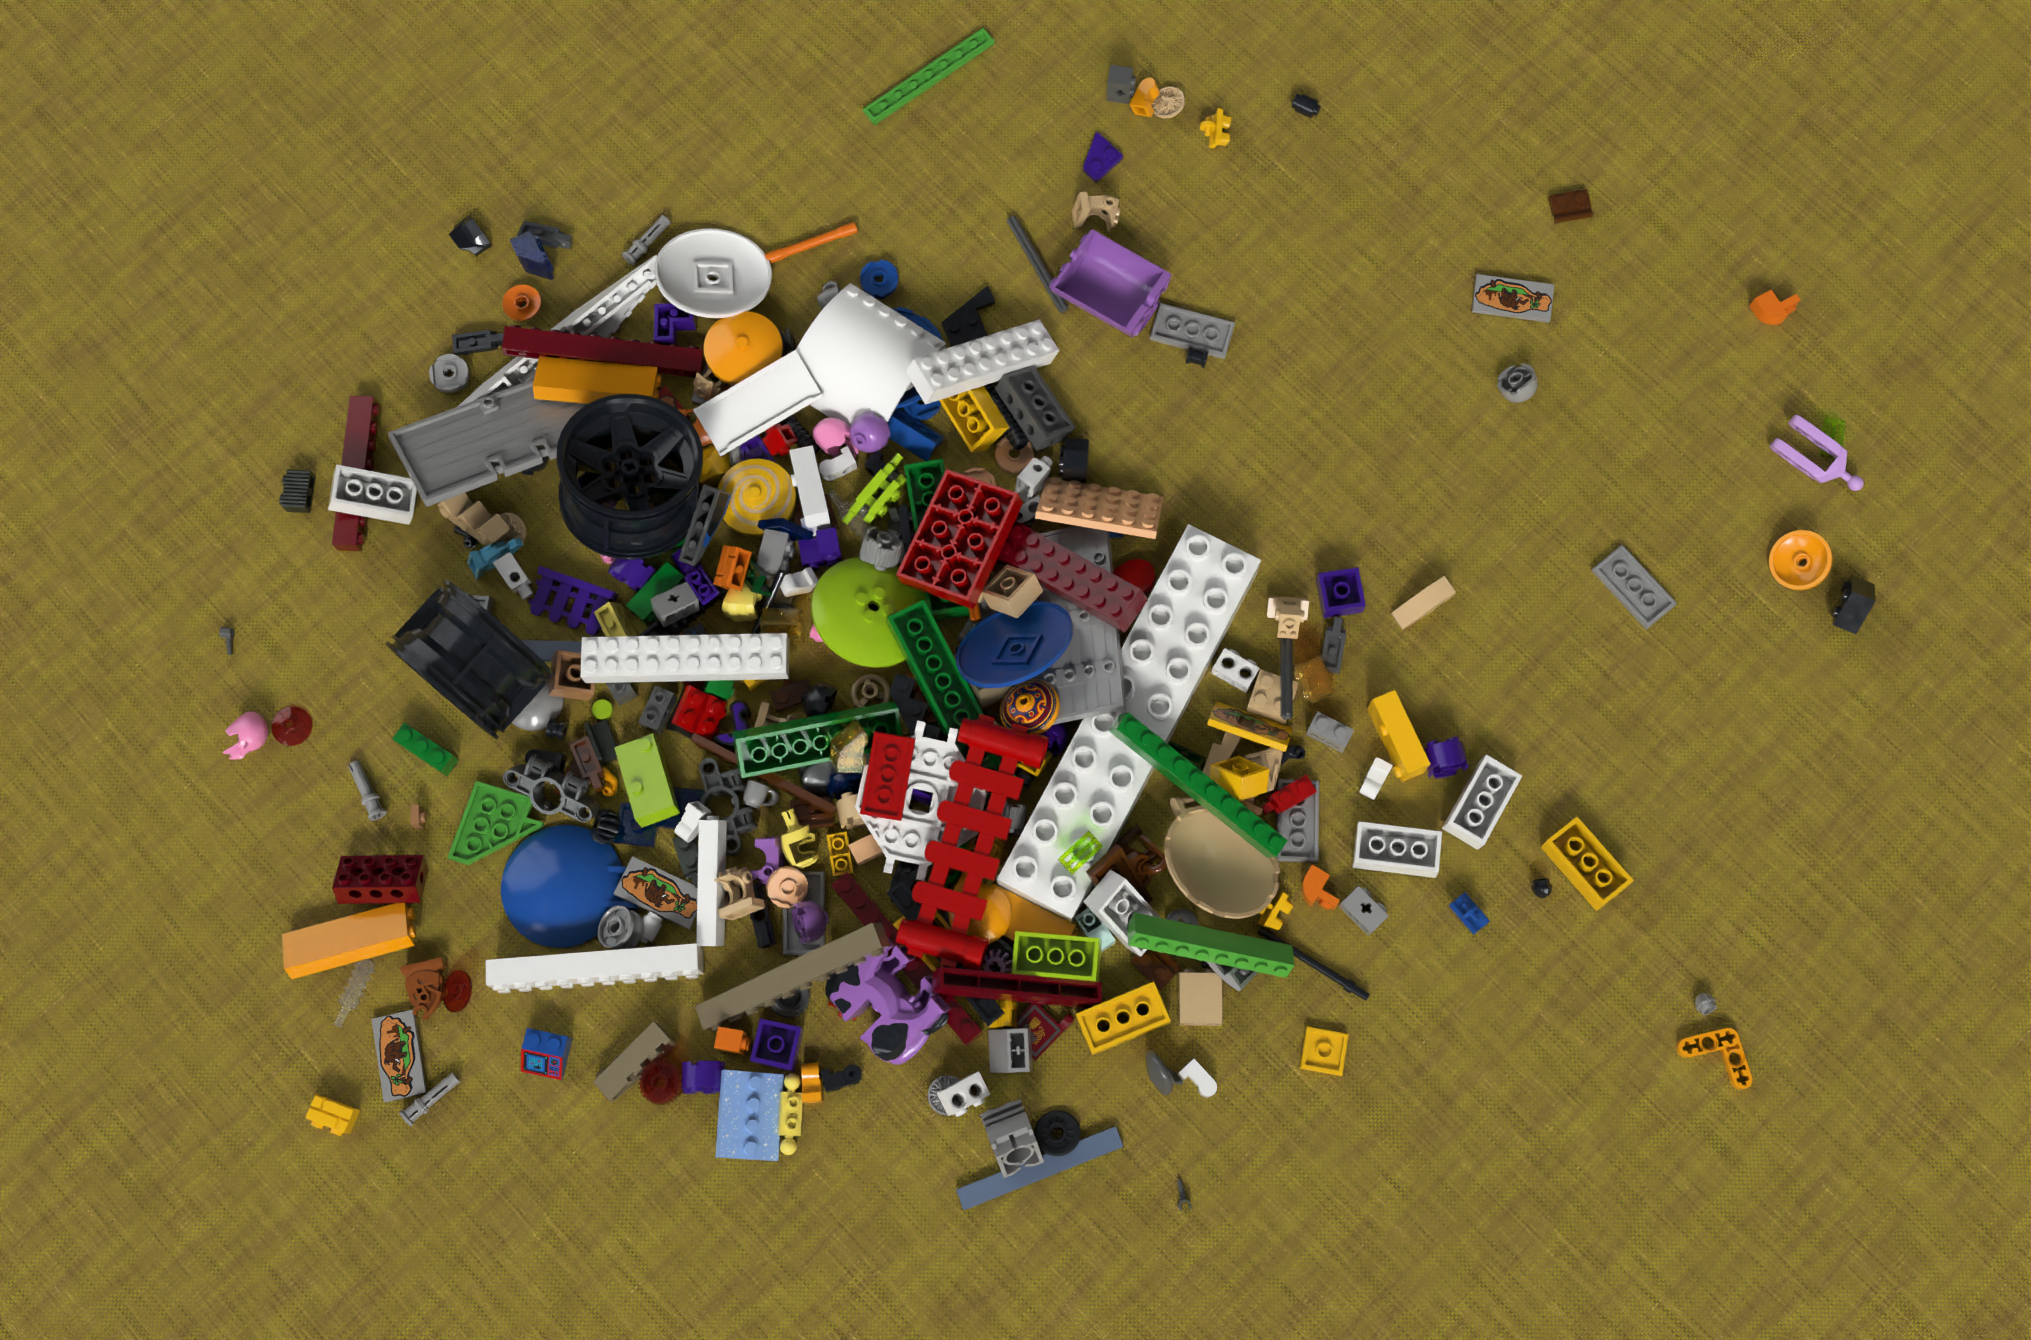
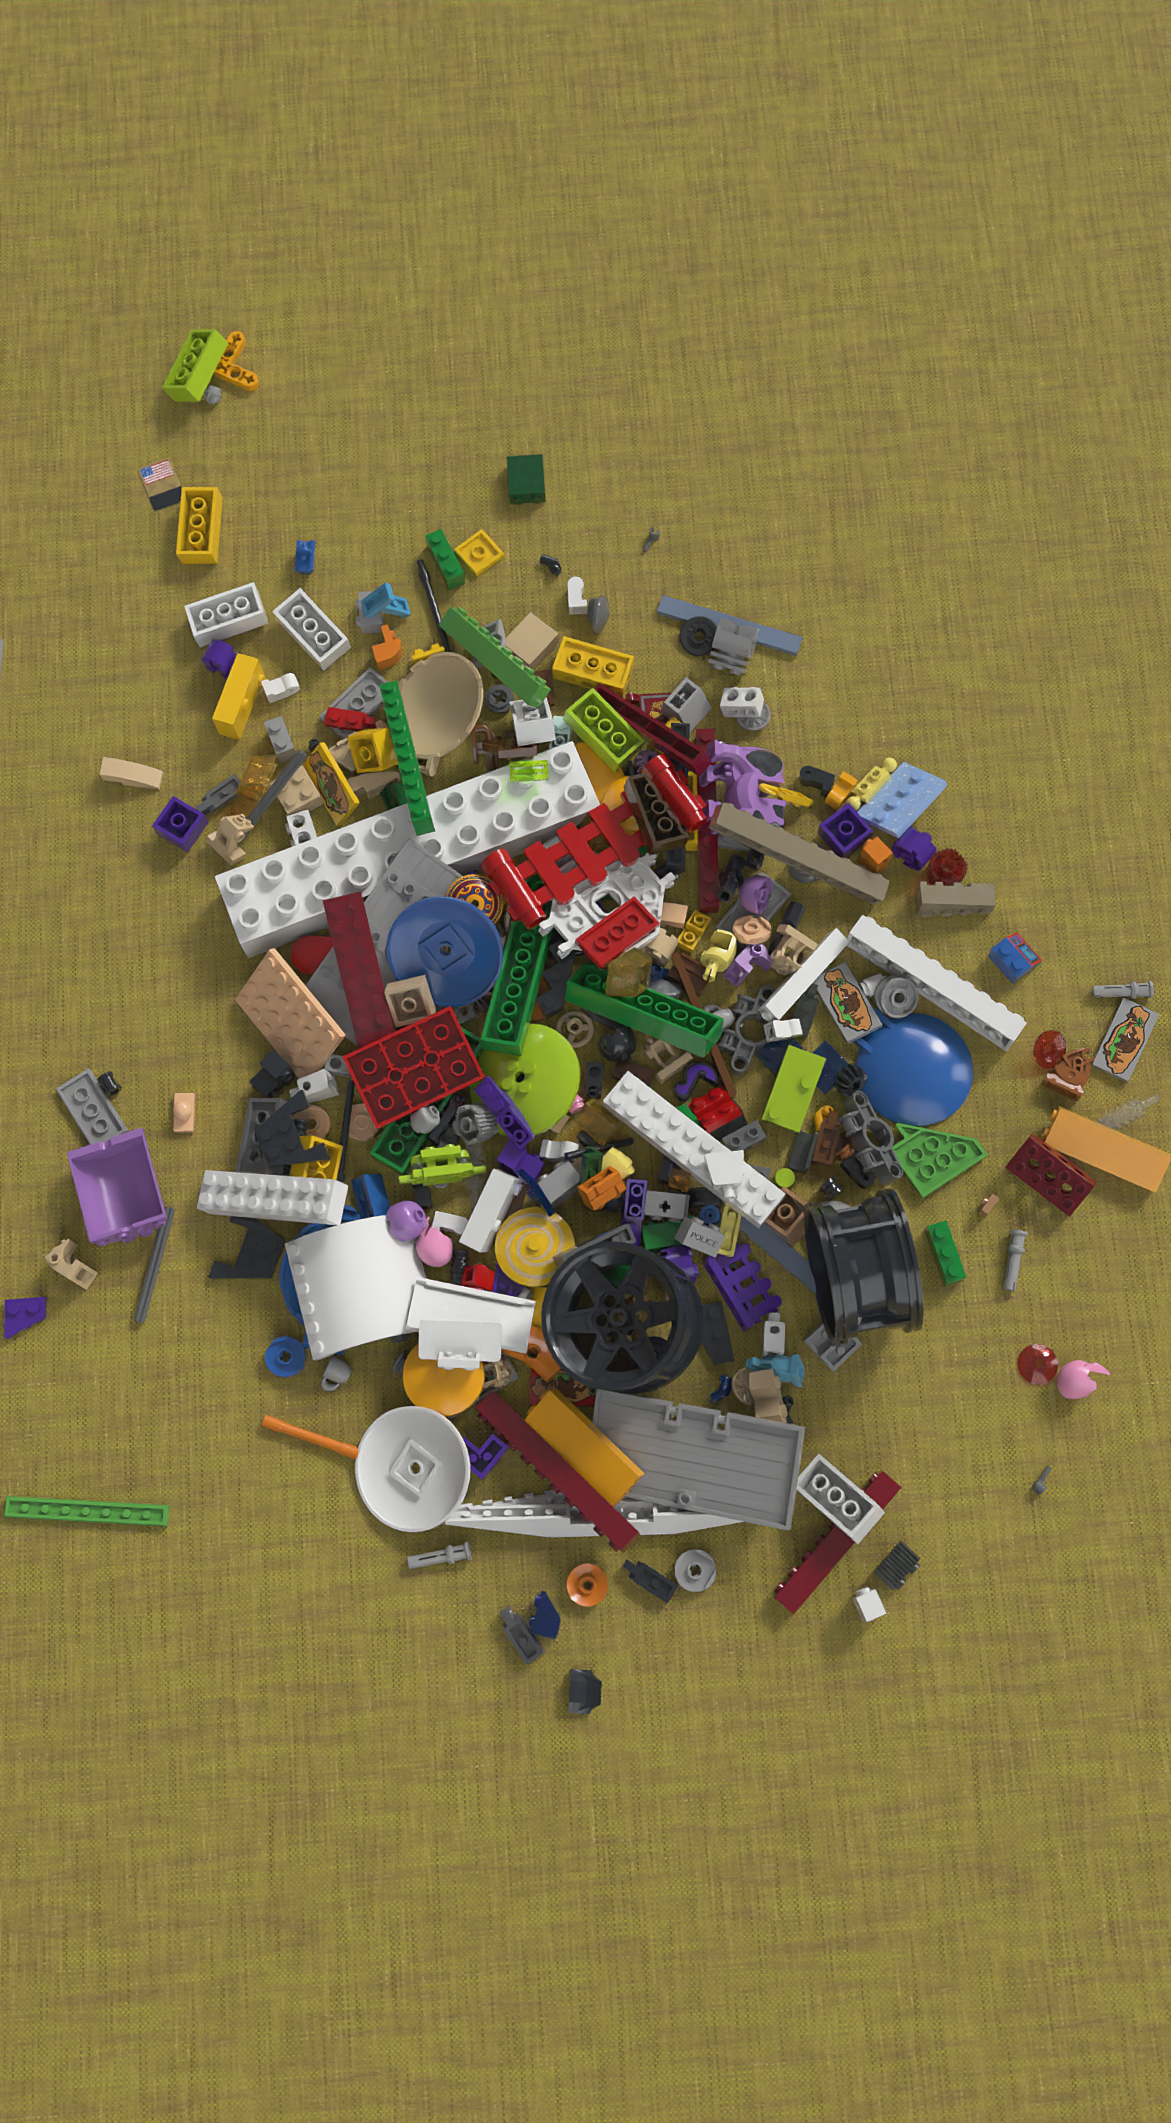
camera: 140 degrees left, 0 degrees up
(297, 443) = (868, 1604): none -> white brick
(526, 513) = (724, 1388): none -> clear blue arm
(566, 763) = (843, 1152): none -> dark orange bush
(567, 549) = (716, 1335): none -> black wing
(627, 597) = (700, 1236): none -> light grey brick
(635, 625) = (710, 1214): none -> blue tile
(639, 649) = (725, 1171): none -> white torso
(681, 629) = (679, 1179): none -> clear orange plate
(742, 368) = (460, 1342): none -> white bracket
(819, 663) = (594, 1080): none -> black leg
(840, 915) = (731, 878): none -> black piece
(851, 1032) = (795, 798): none -> yellow plate
(854, 567) = (506, 1112): none -> dark purple slope
(916, 510) = (425, 1119): none -> light grey head
(931, 892) = (655, 821): none -> dark brown wedge
(973, 456) = (345, 1128): none -> black bar
(1014, 406) = (281, 1139): none -> black wing
(1120, 384) = (184, 1112): none -> light nougat tile
(1247, 1095) = (553, 564): none -> black arm
(1345, 1015) = (445, 559): none -> green brick
(1346, 1158) = (526, 479): none -> dark green brick
(1353, 923) = (384, 601): none -> dark azure bracket
(1541, 887) = (241, 537): black plate -> none
(1663, 882) = (161, 484): none -> sticker
(1746, 1013) = (195, 365): none -> lime brick

